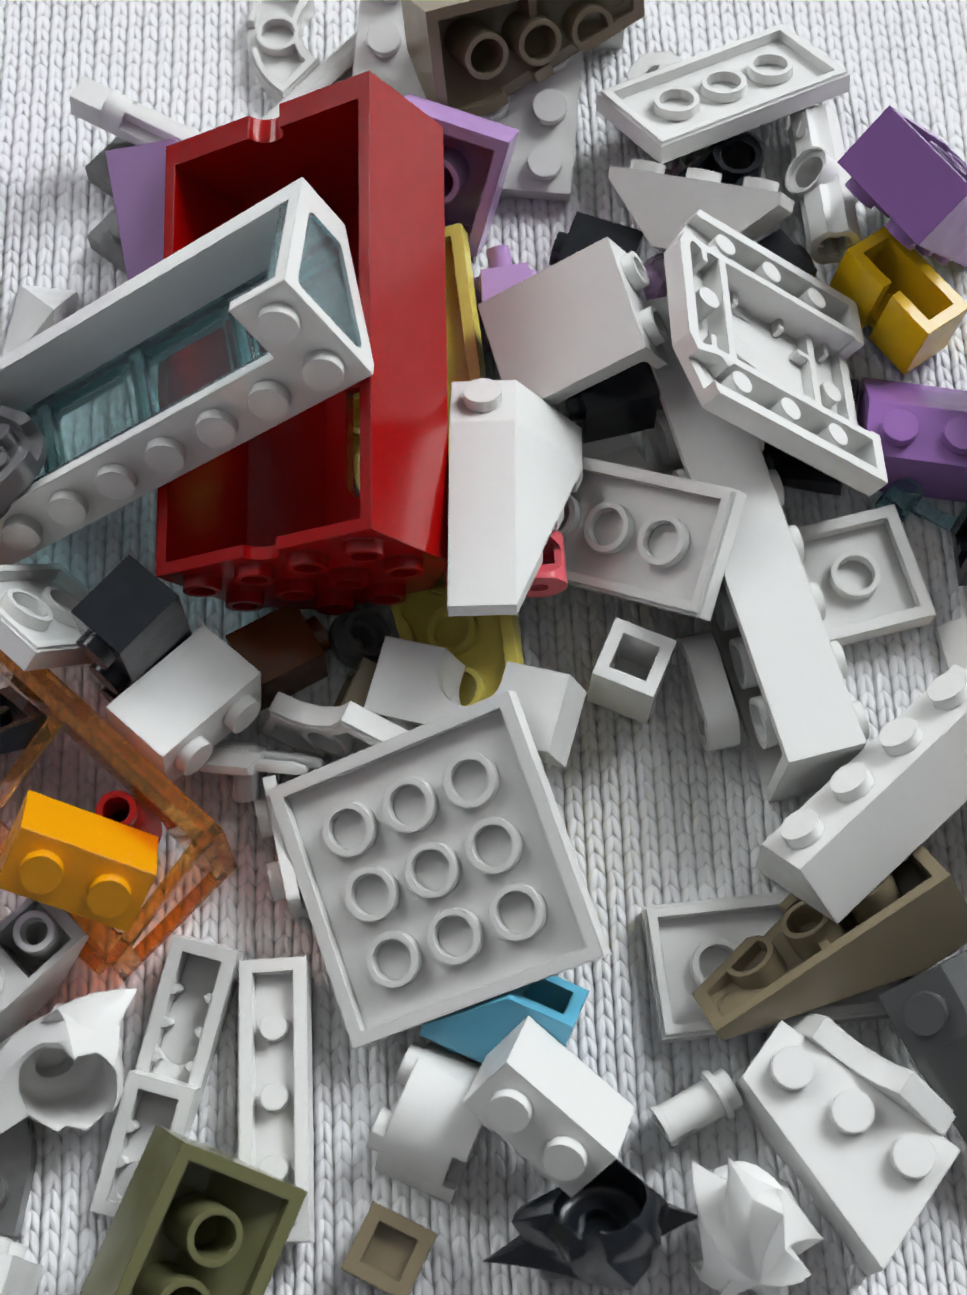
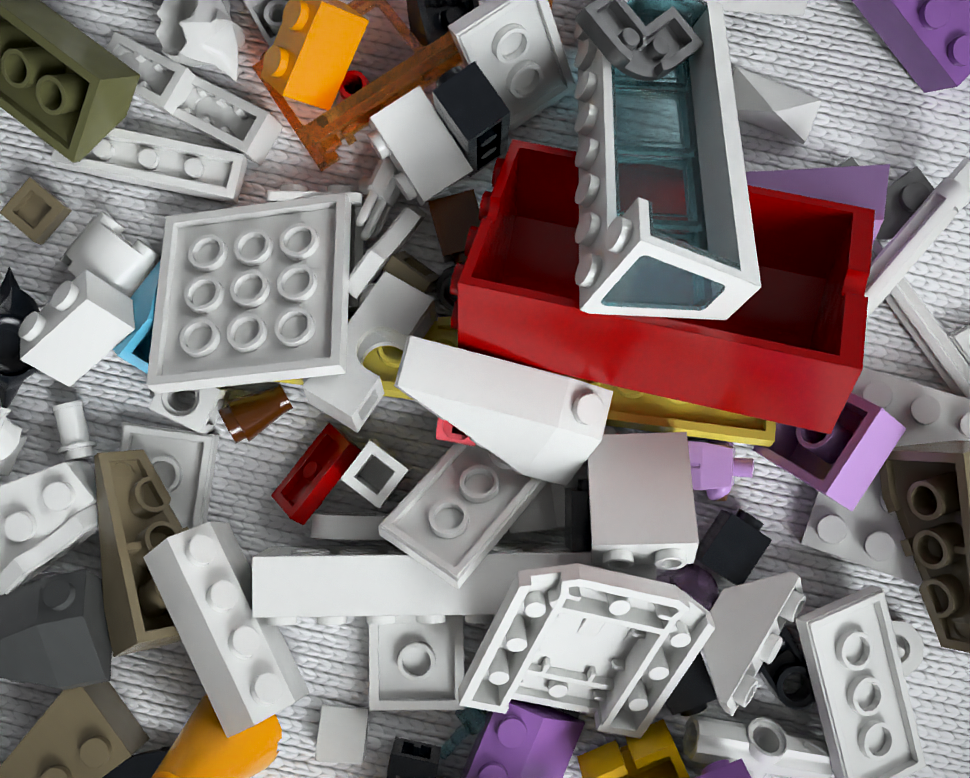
camera: 110 degrees right, 20 degrees up
(606, 864) = (254, 412): none -> reddish brown cone
(623, 929) = (201, 416): none -> white brick
(654, 756) = (315, 474): none -> red plate

